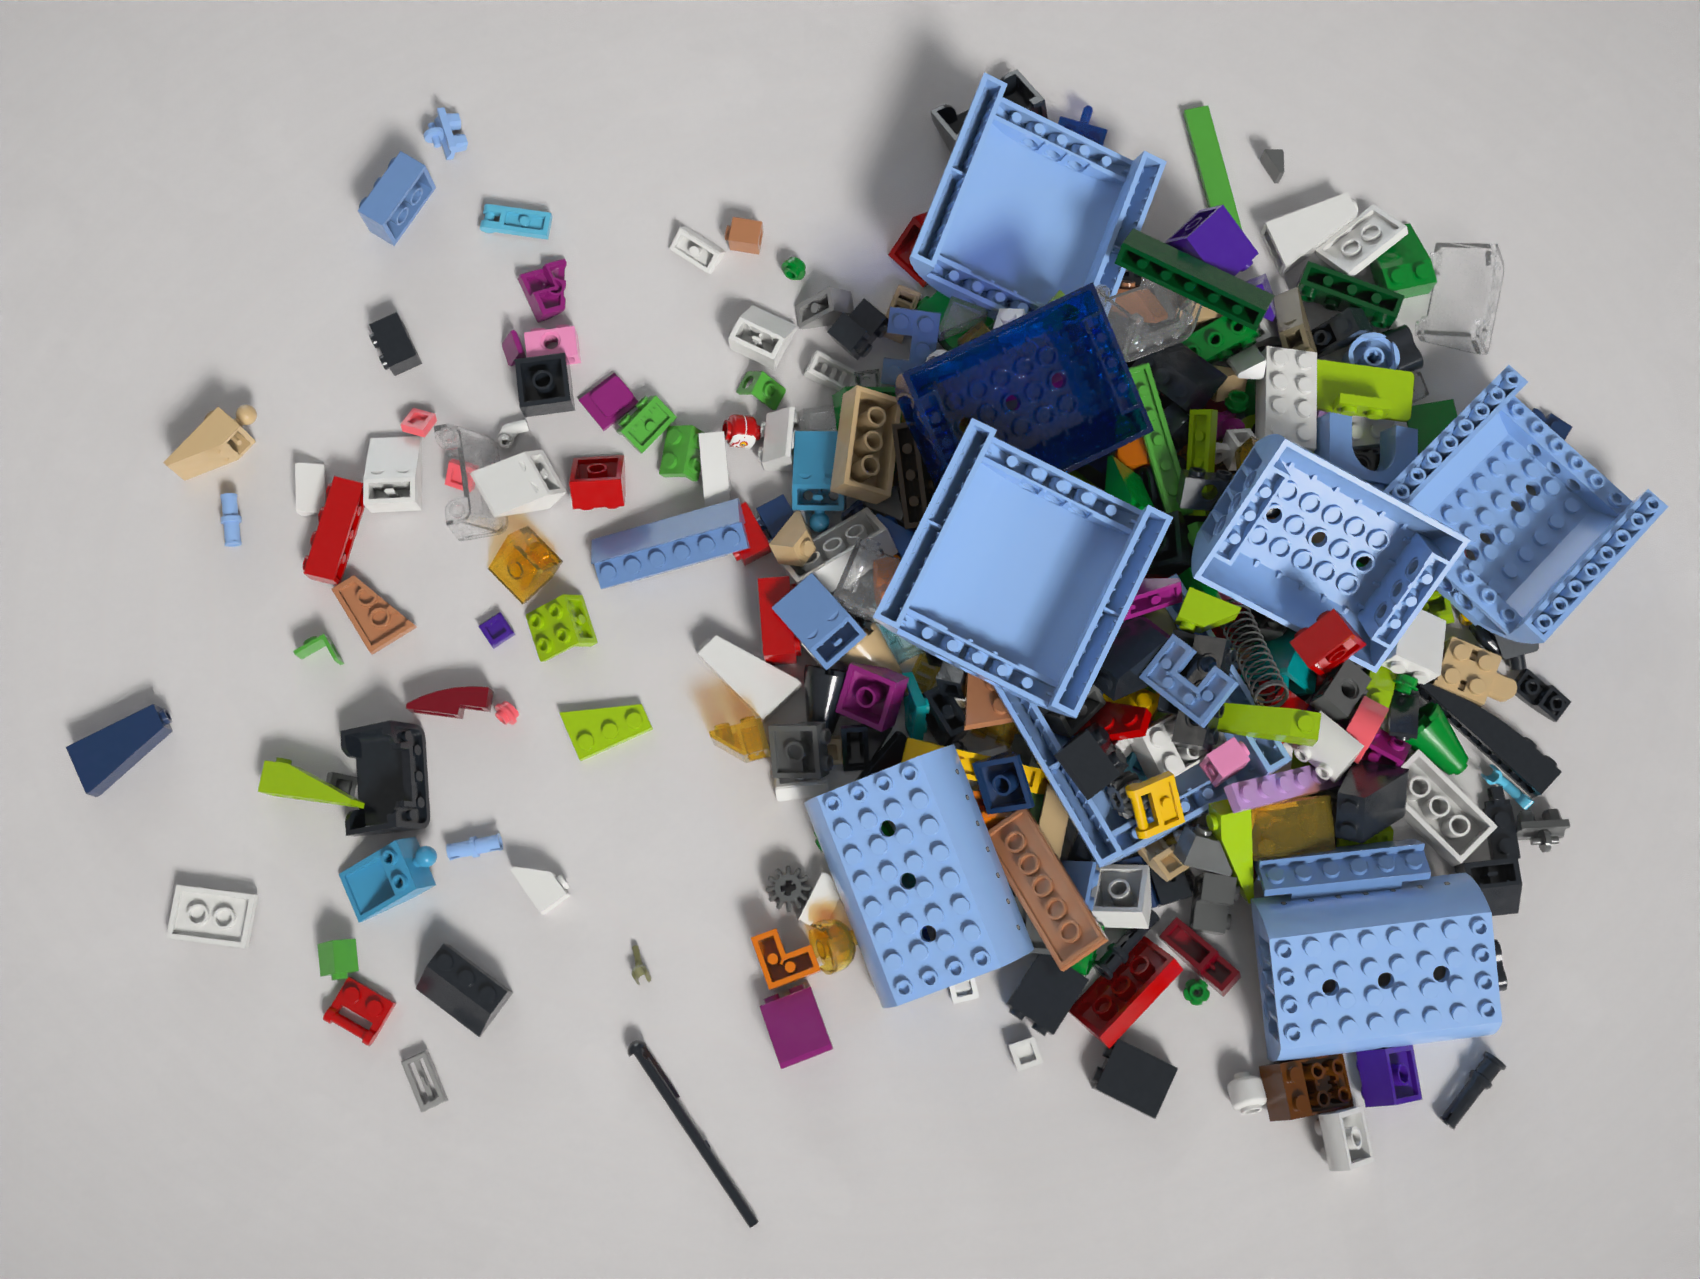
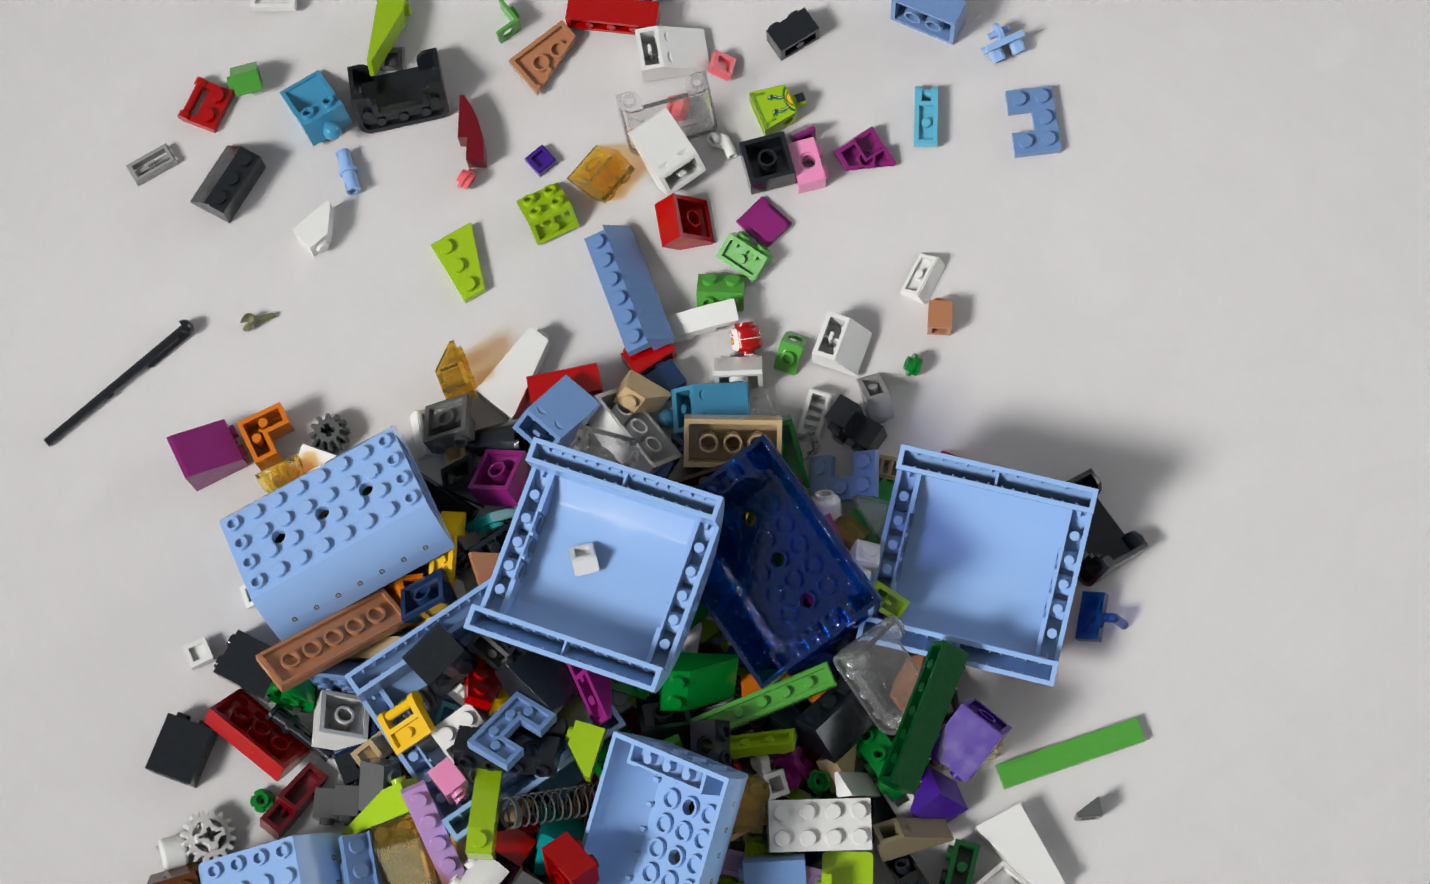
camera: 90 degrees right, 5 degrees down
(480, 372) = (775, 108): none -> lime torso
(526, 108) = (1040, 104): none -> medium blue plate
(1001, 591) = (584, 559): none -> white slope
(1229, 1061) = (206, 826): none -> white gear

